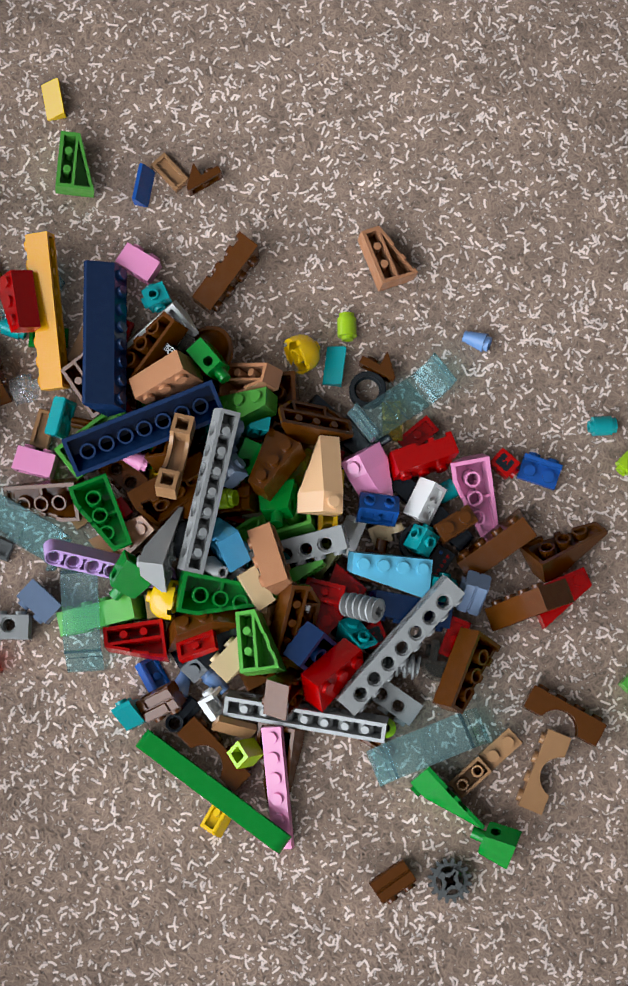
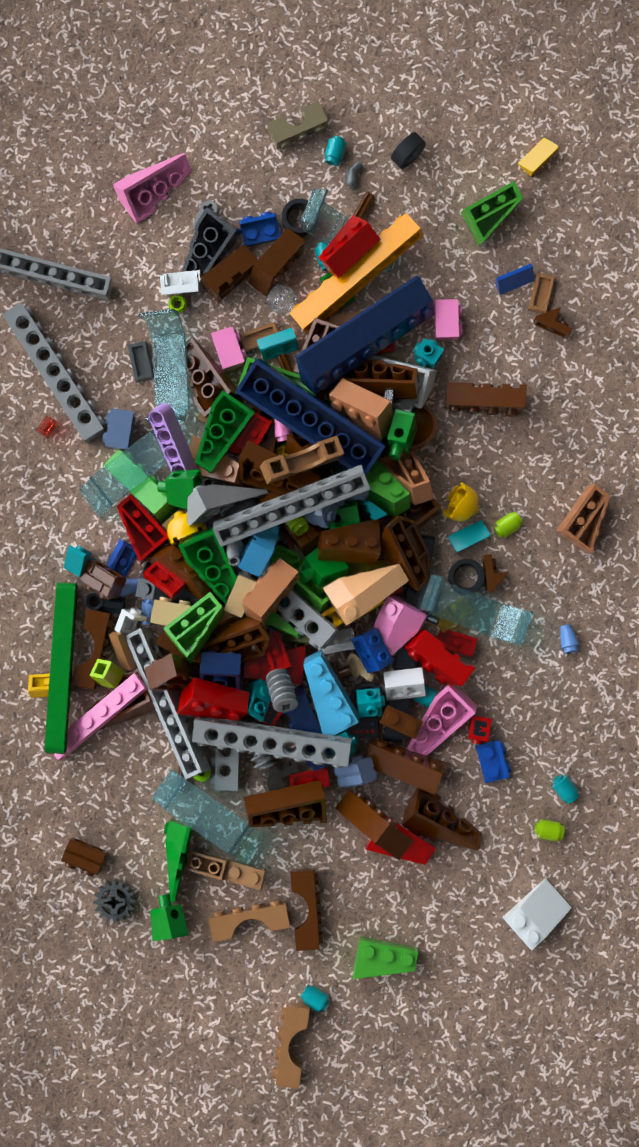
camera: 50 degrees right, 5 degrees up
(121, 484) = (254, 431): none -> red plate

